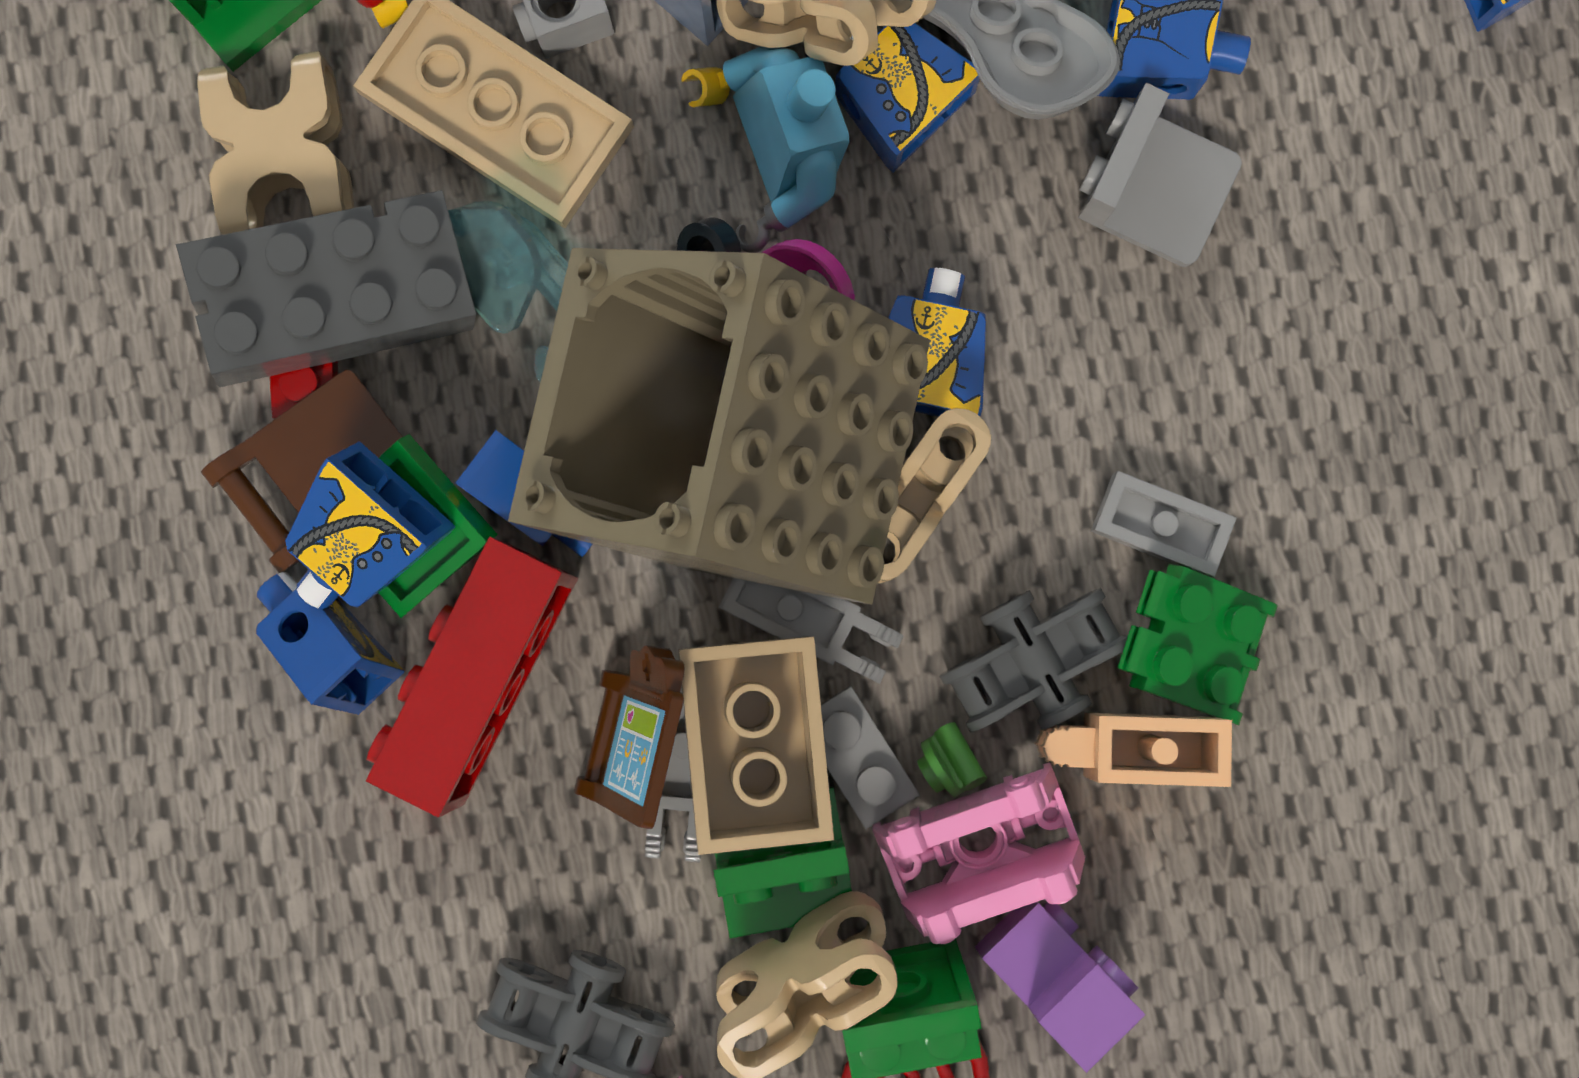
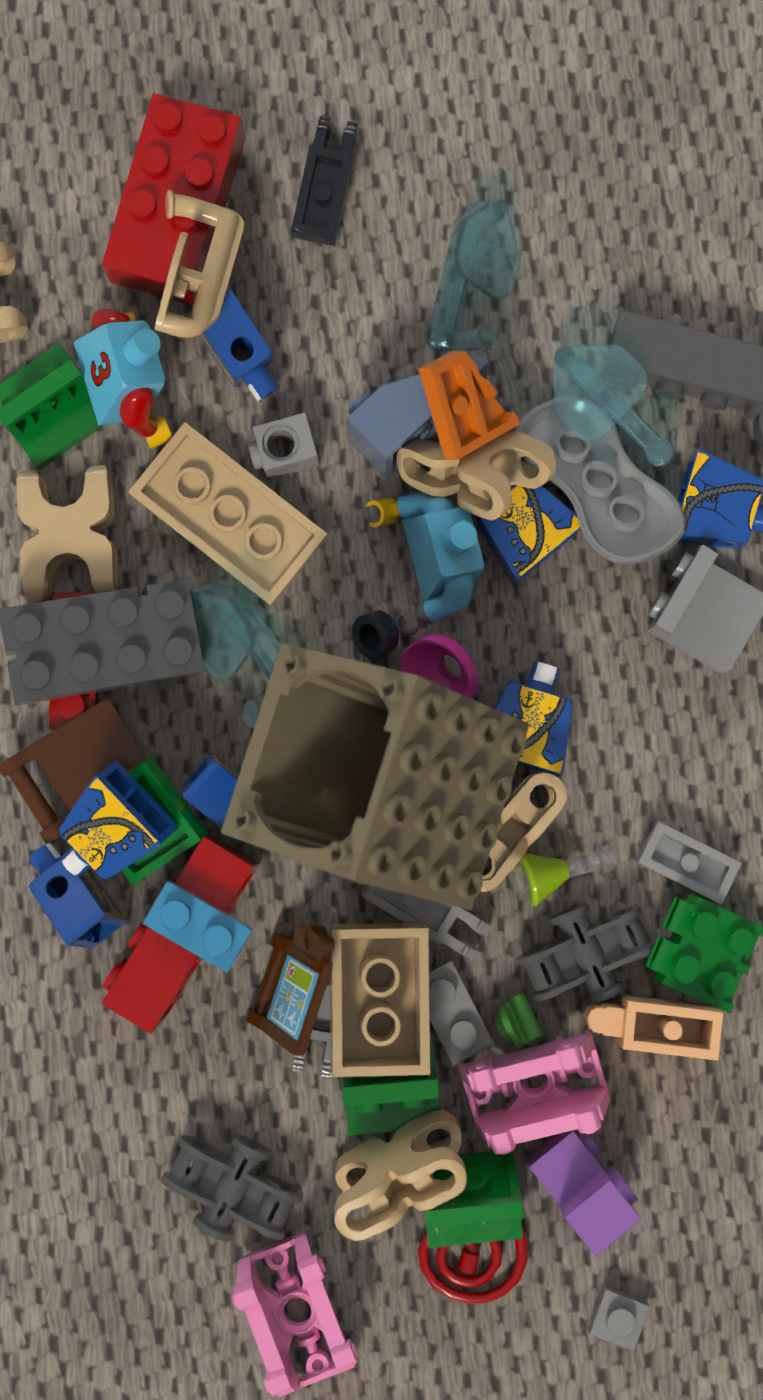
camera: 10 degrees right, 0 degrees up
(491, 660) = (198, 926): none -> dark azure plate
(960, 560) = (540, 875): none -> piece

